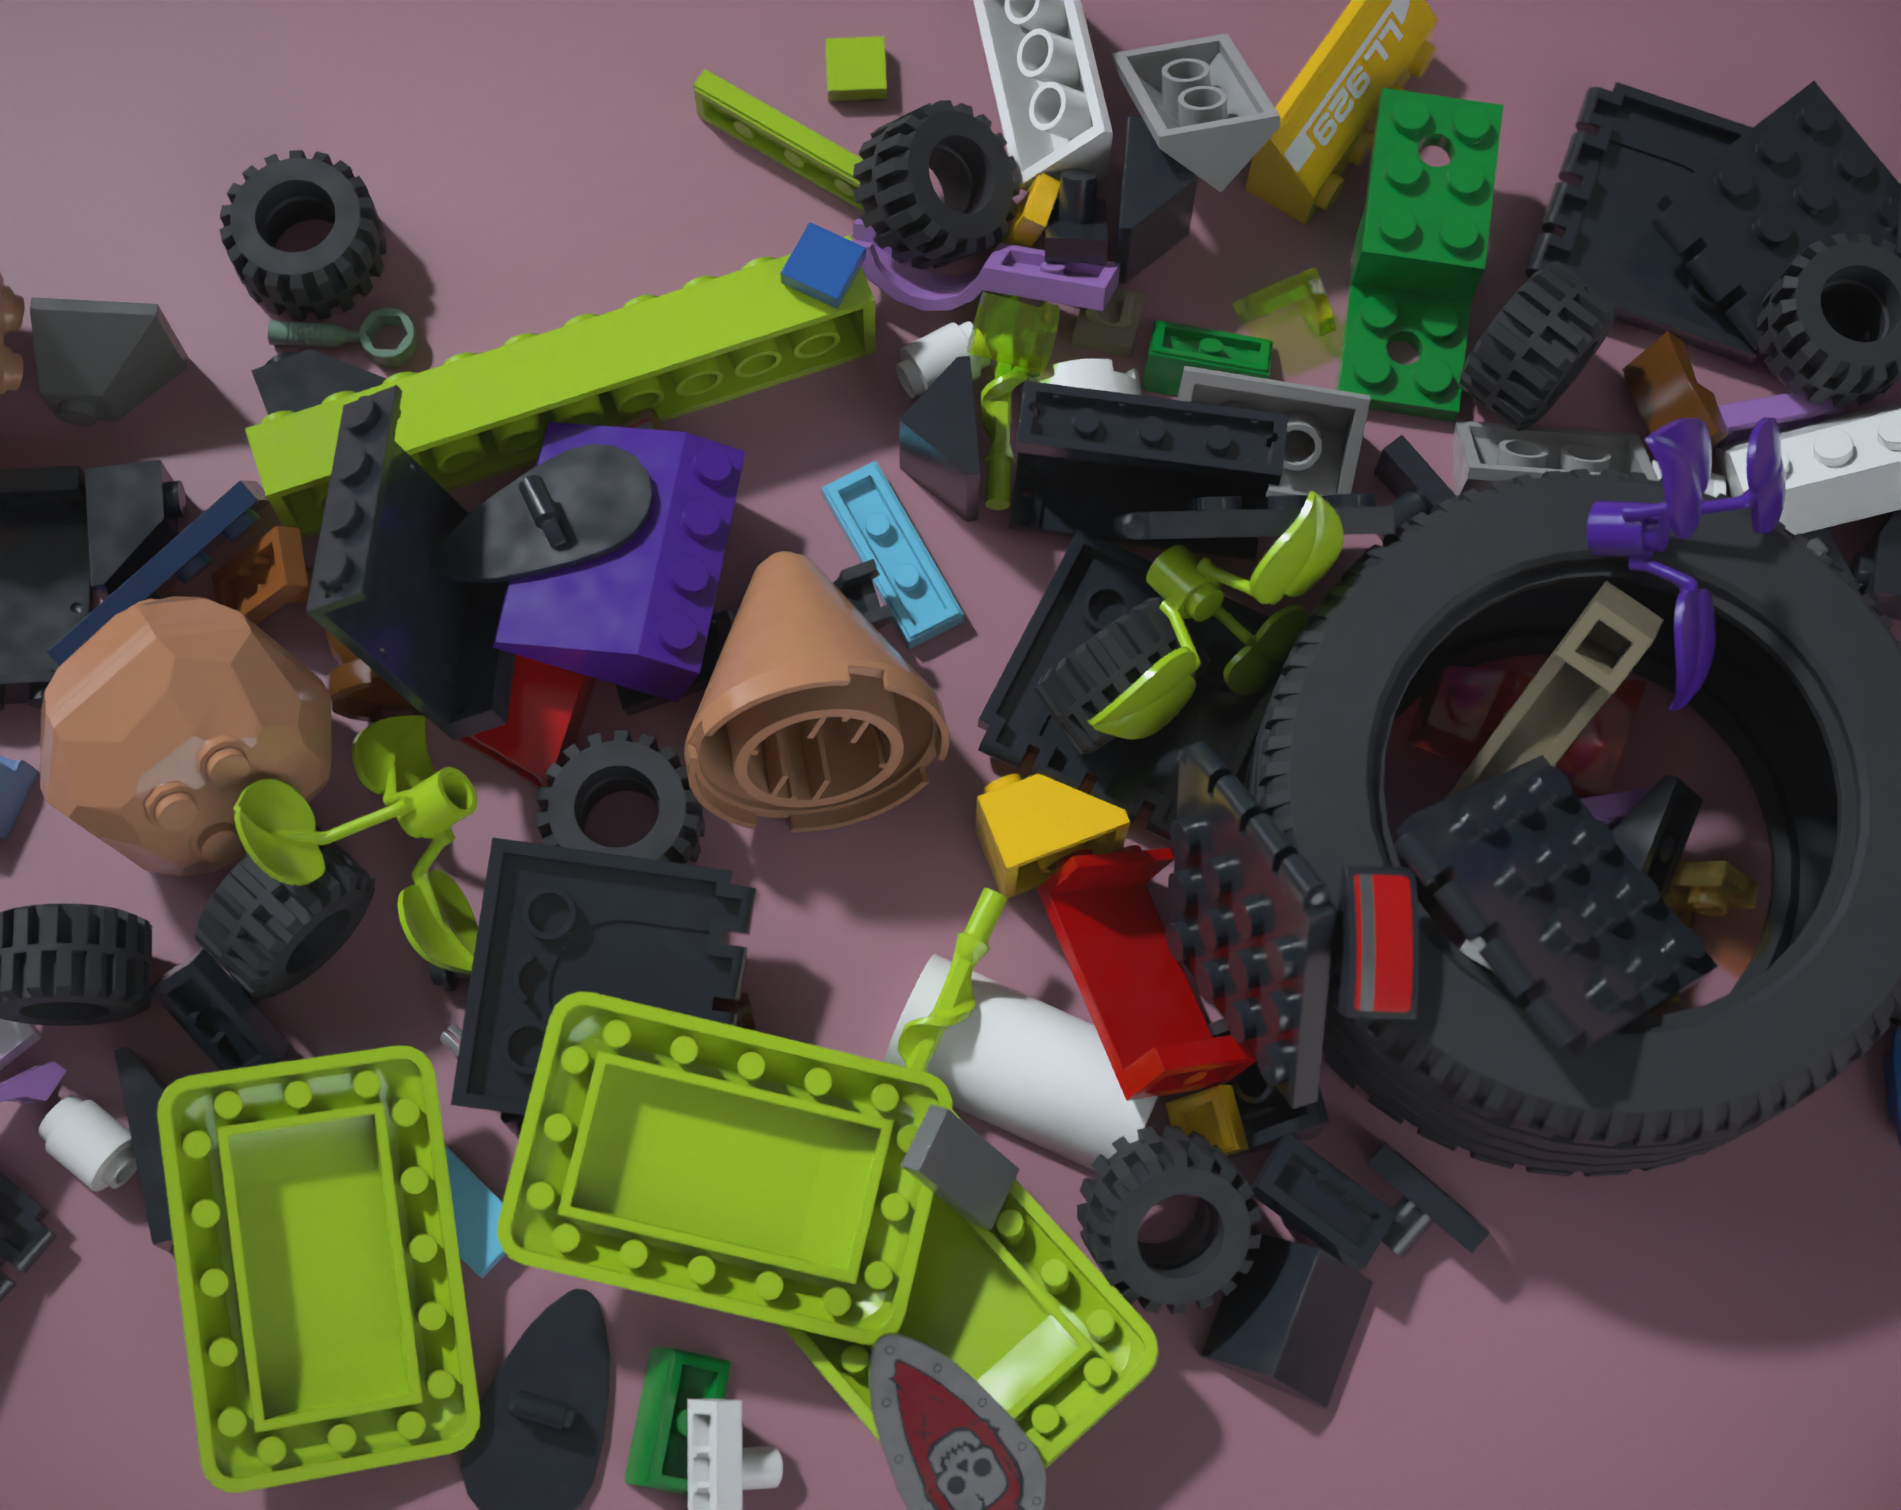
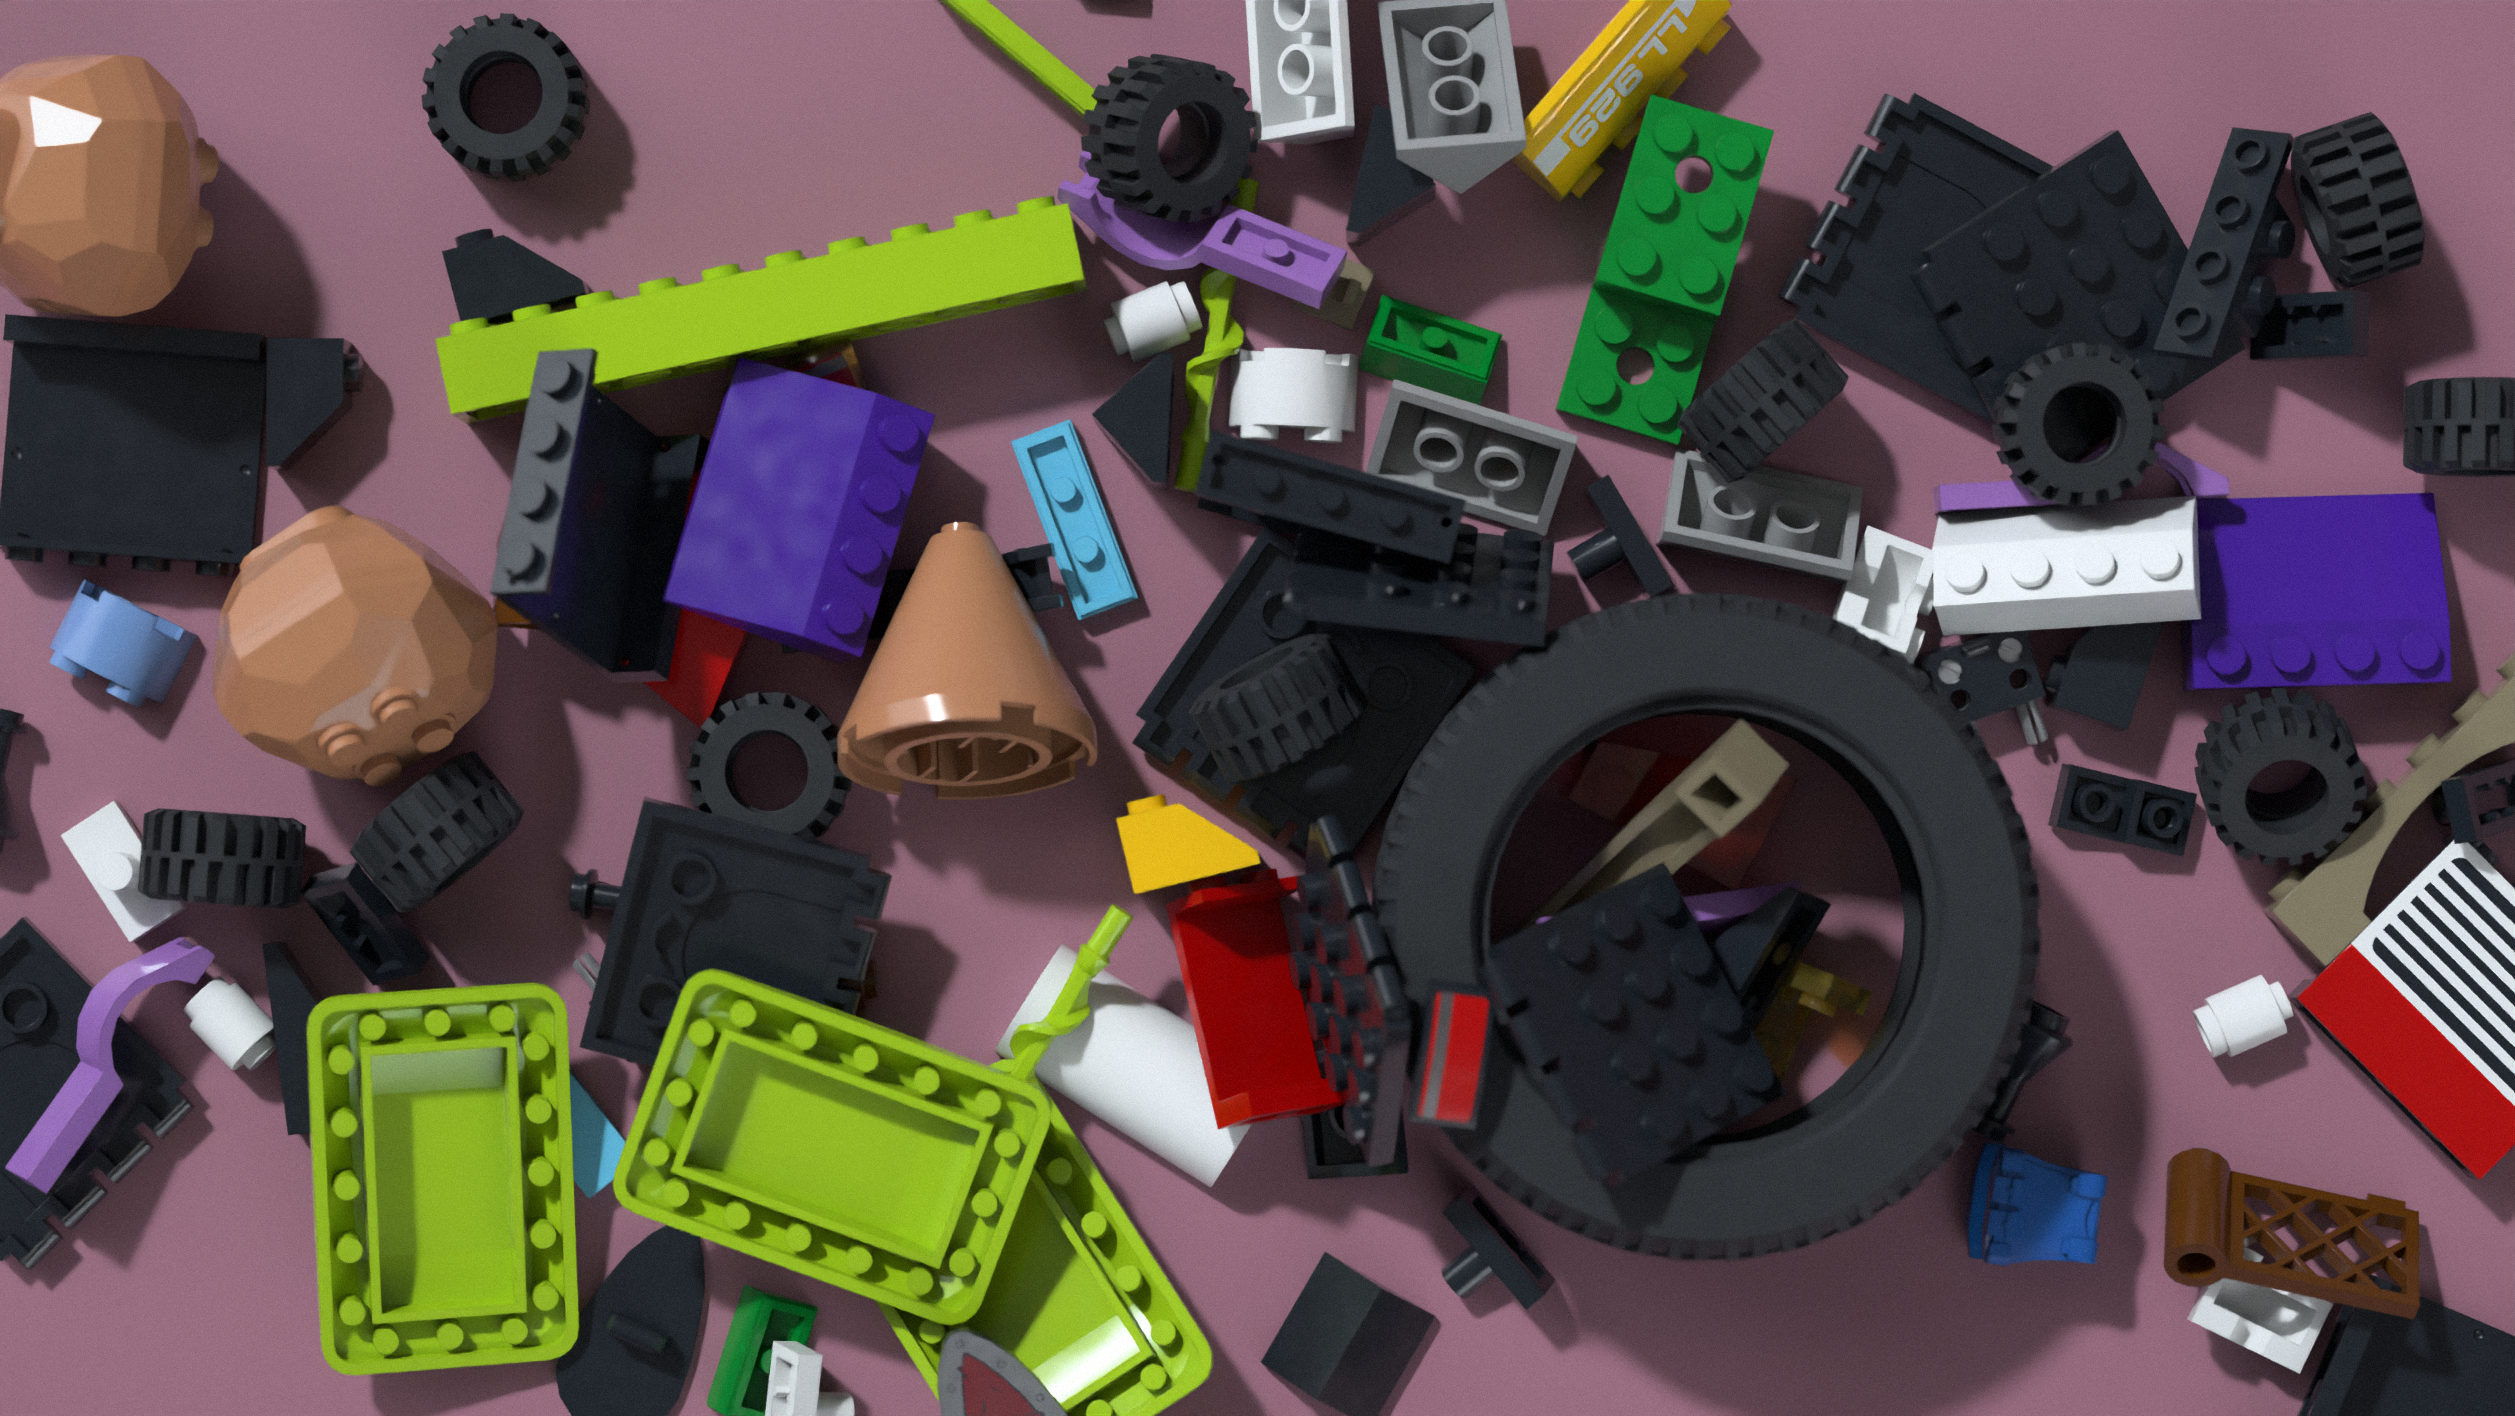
camera: 15 degrees right, 15 degrees up
(101, 356) = (286, 218): dark grey slope -> none
(179, 560) = (339, 458): dark blue wing -> none
(265, 575) = (436, 479): dark orange tile -> none
(334, 335) = (528, 203): sand green piece -> none
(394, 763) = (555, 693): lime plant -> none
(551, 518) = (733, 471): black shield -> none
(823, 265) = (1035, 239): blue tile -> none
(960, 1166) = (1051, 1175): dark grey tile -> none
(1014, 332) = (1226, 313): clear neon green tile -> none
(1033, 212) = (1269, 173): yellow tile -> none
(1077, 221) = (1309, 197): black tile -> none
(1194, 592) = (1420, 689): lime plant -> none
(1198, 1258) = (1252, 1282): black tyre -> none
(1212, 1115) = (1299, 1149): yellow tile -> none
(1303, 289) = (1518, 293): clear neon green tile -> none
(1322, 1203) = (1393, 1243): black tile -> none
(1644, 527) = (1785, 682): dark purple plant -> none
(1668, 390) = (1896, 479): reddish brown slope -> none

